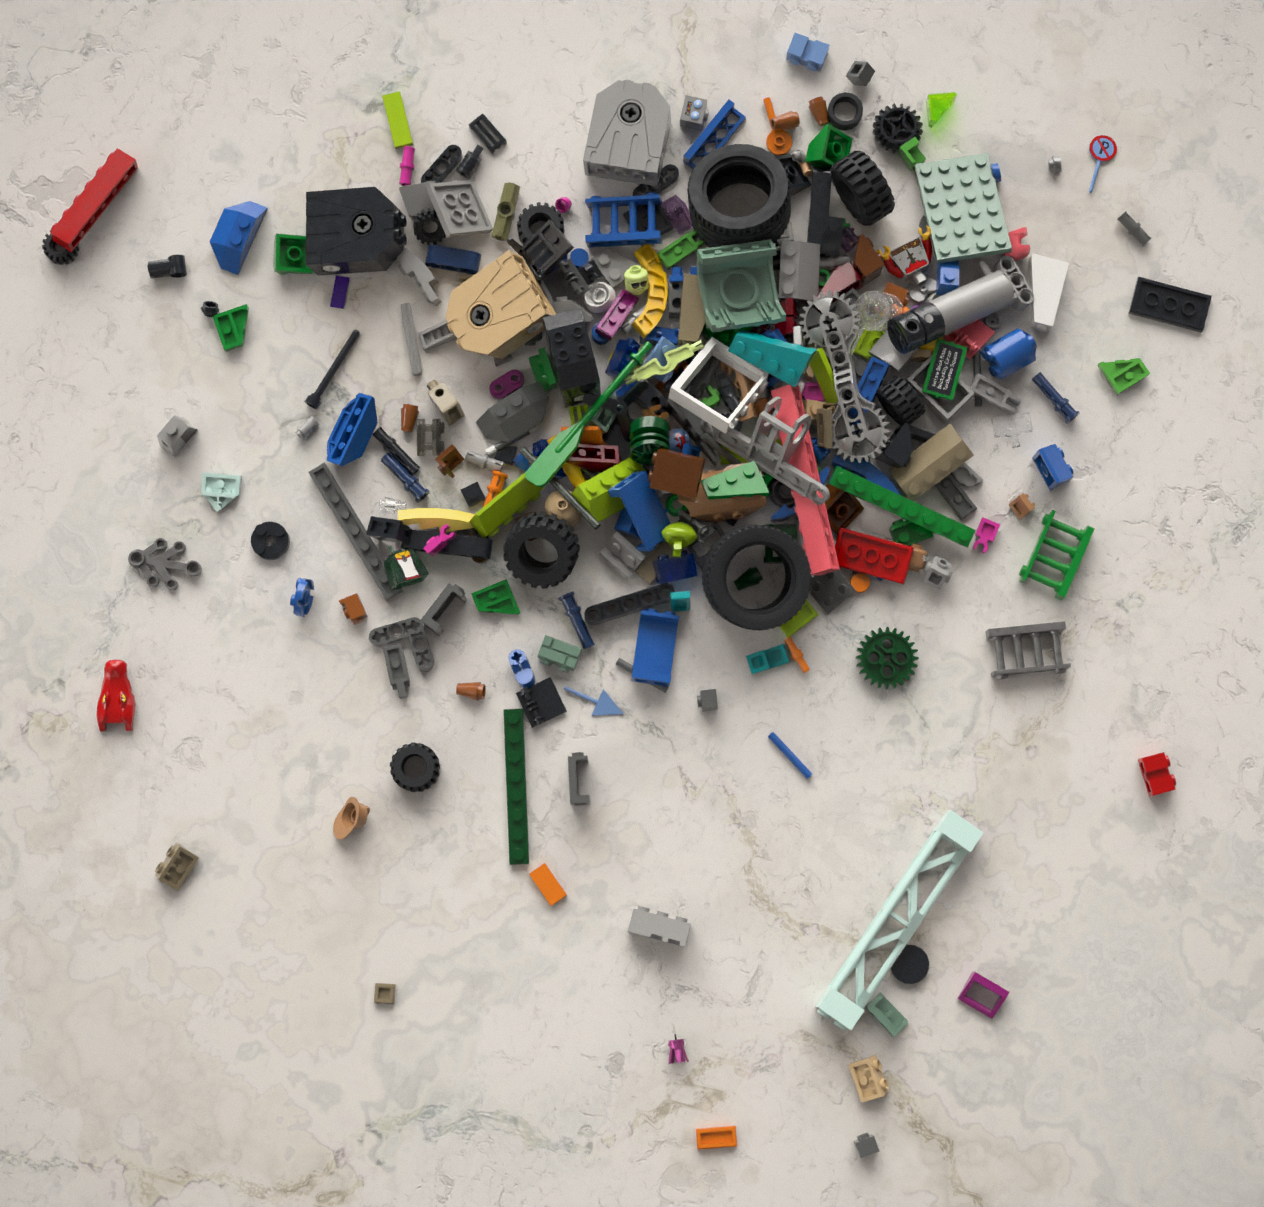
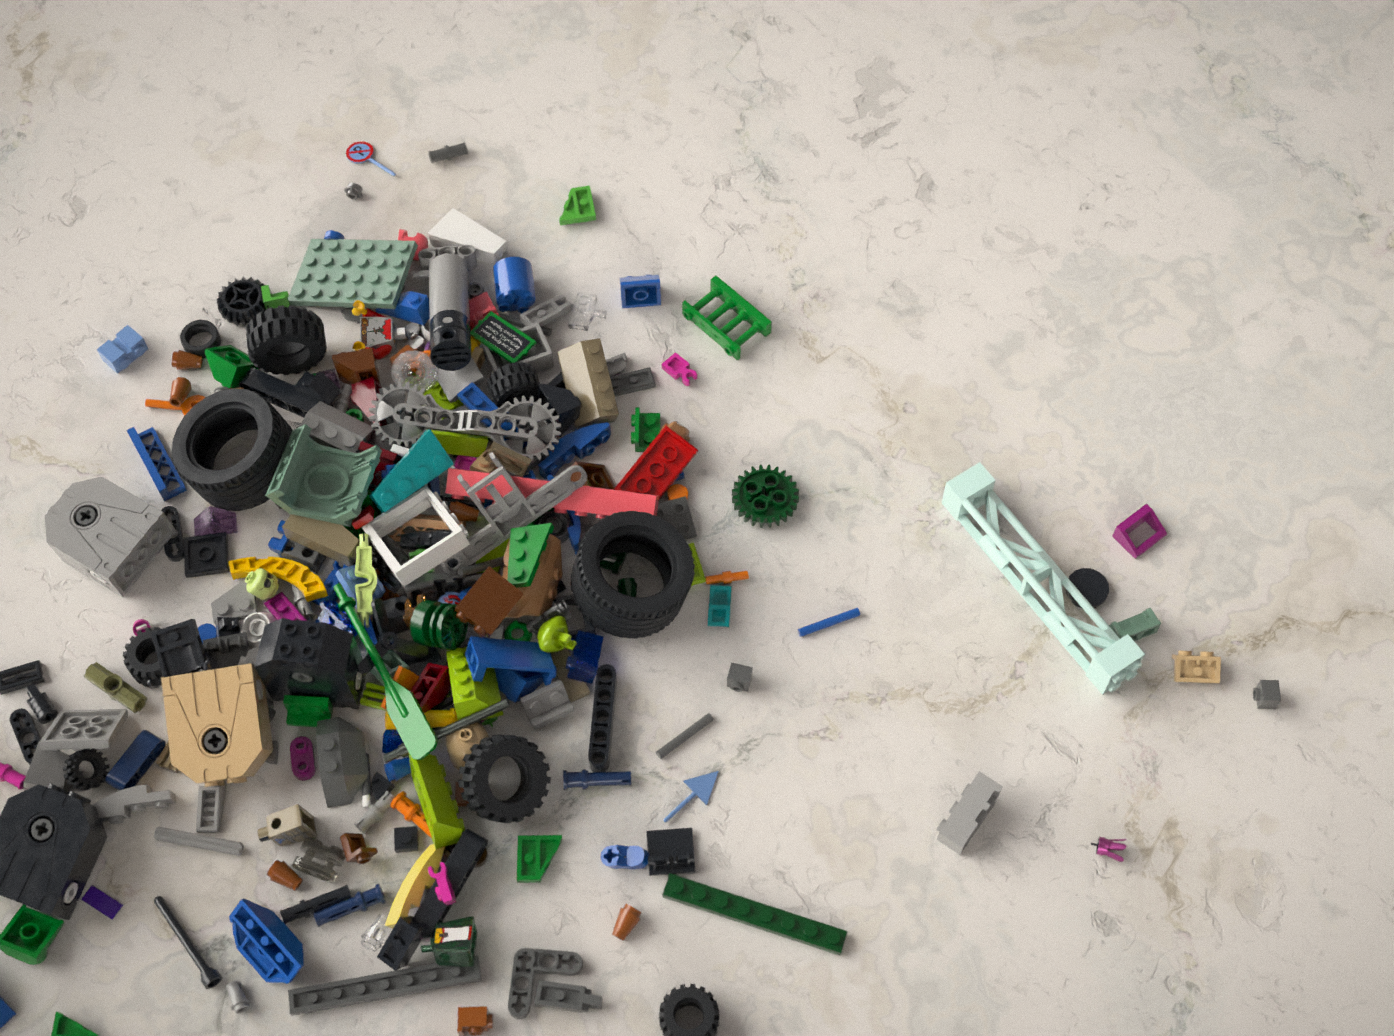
camera: 70 degrees left, 20 degrees down
(440, 605) = (531, 933): dark grey panel -> none
(548, 884) = (878, 920): orange tile -> none
(559, 653) = (625, 810): sand green brick -> none
(575, 798) = (773, 842): dark grey panel -> none
(633, 236) = (205, 589): blue fence -> none
(655, 647) = (661, 710): blue panel -> none
(679, 250) = (253, 533): bright green hinge -> none
(680, 601) = (623, 662): teal tile -> none
(694, 113) = (120, 469): light grey head -> none
(716, 1137) = (1217, 843): orange tile -> none
(721, 337) = (364, 517): none -> red tile
(860, 73) = (171, 311): dark grey plate -> none
(901, 507) = (620, 422): green plate -> none
(937, 105) = (241, 262): clear neon green slope -> none
(937, 572) = (699, 419): light grey brick -> none
(1022, 506) = (666, 329): medium nougat tile -> none
(1035, 632) = (793, 360): flat silver fence -> none
(1061, 404) = (583, 264): dark blue pin -> none
(1156, 774) = (972, 311): red brick -> none
(1170, 304) = (532, 152): black tile -> none

